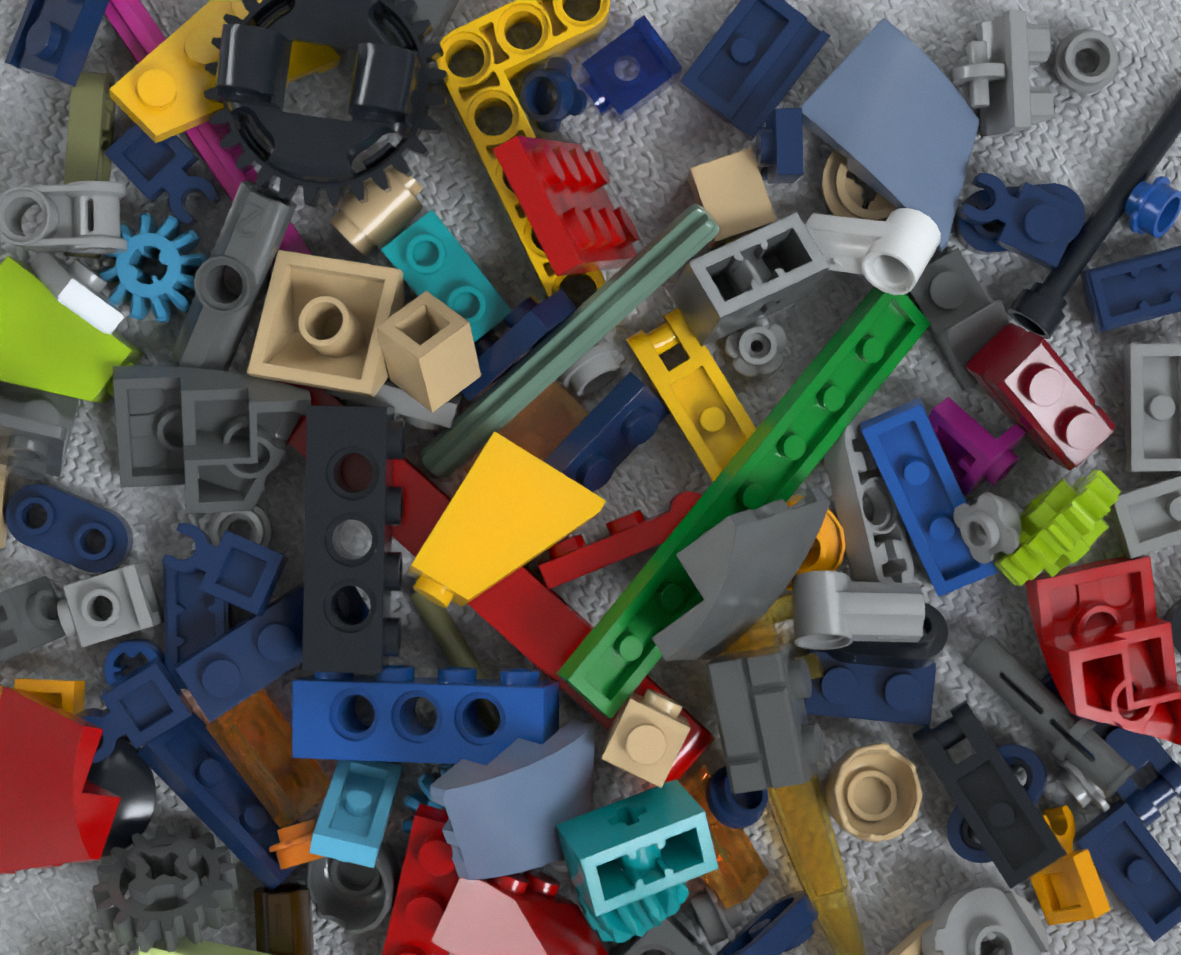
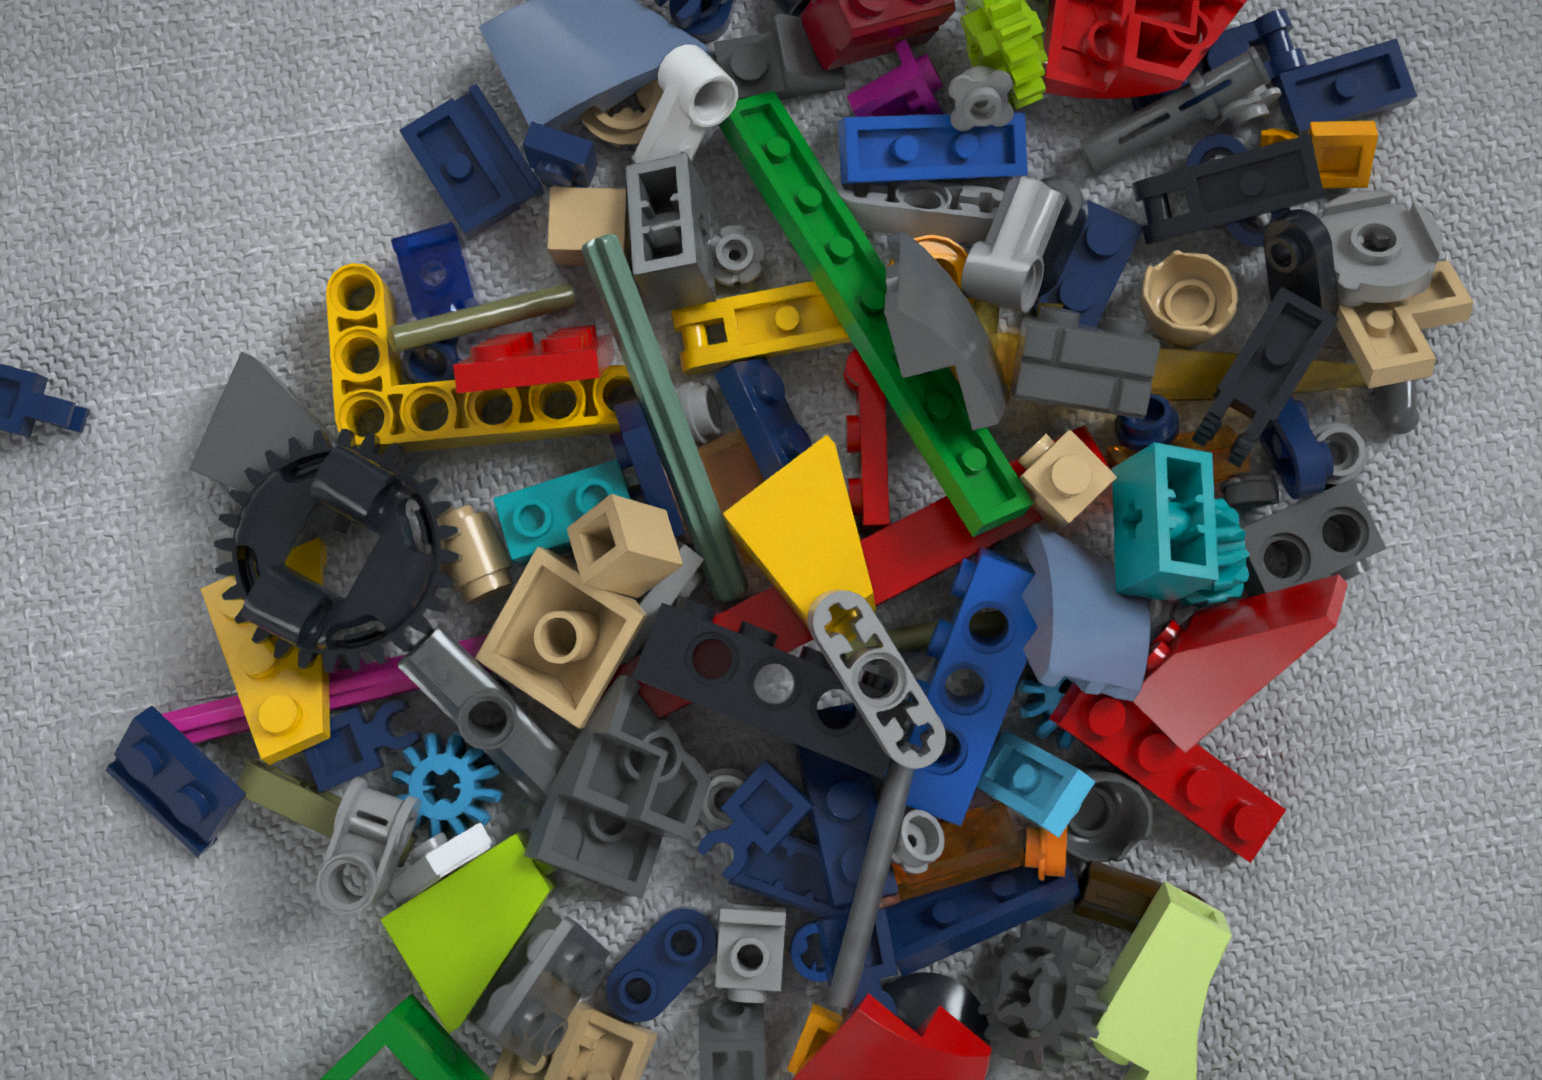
camera: 70 degrees left, 5 degrees down
(214, 694) = (871, 883): none -> flat silver bar
(270, 727) = (918, 842): none -> light grey plate
(374, 680) = (888, 729): none -> light grey beam
(603, 129) = (480, 317): none -> olive bar
(825, 893) = (1267, 369): none -> black hinge
(936, 890) = (1301, 259): none -> black plate

